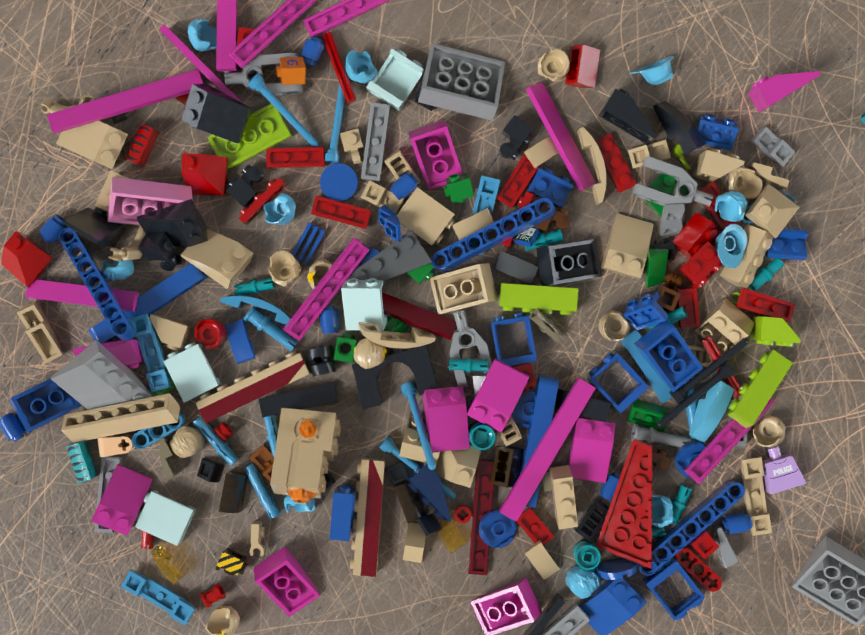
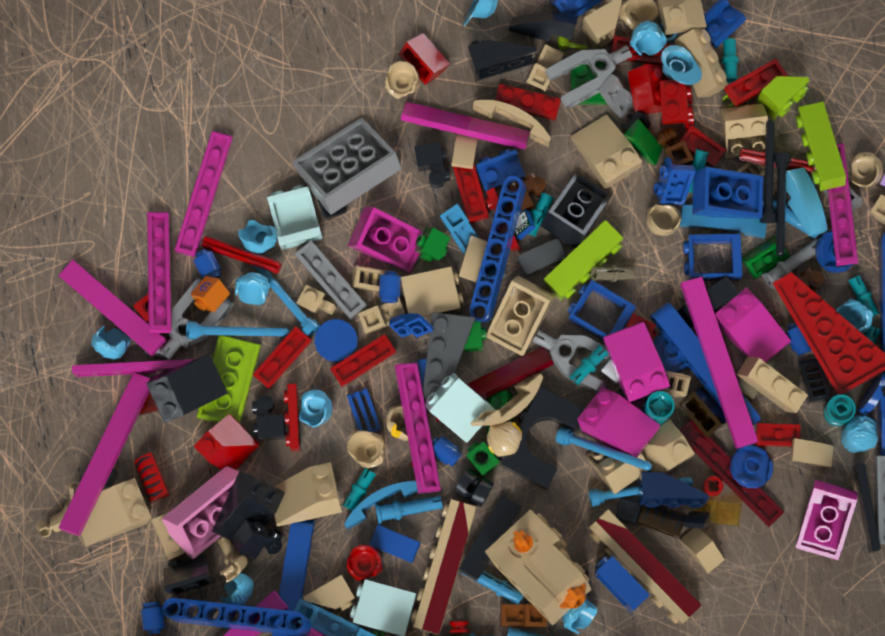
camera: 40 degrees left, 10 degrees down
(323, 95) = (252, 288): none -> medium azure hair

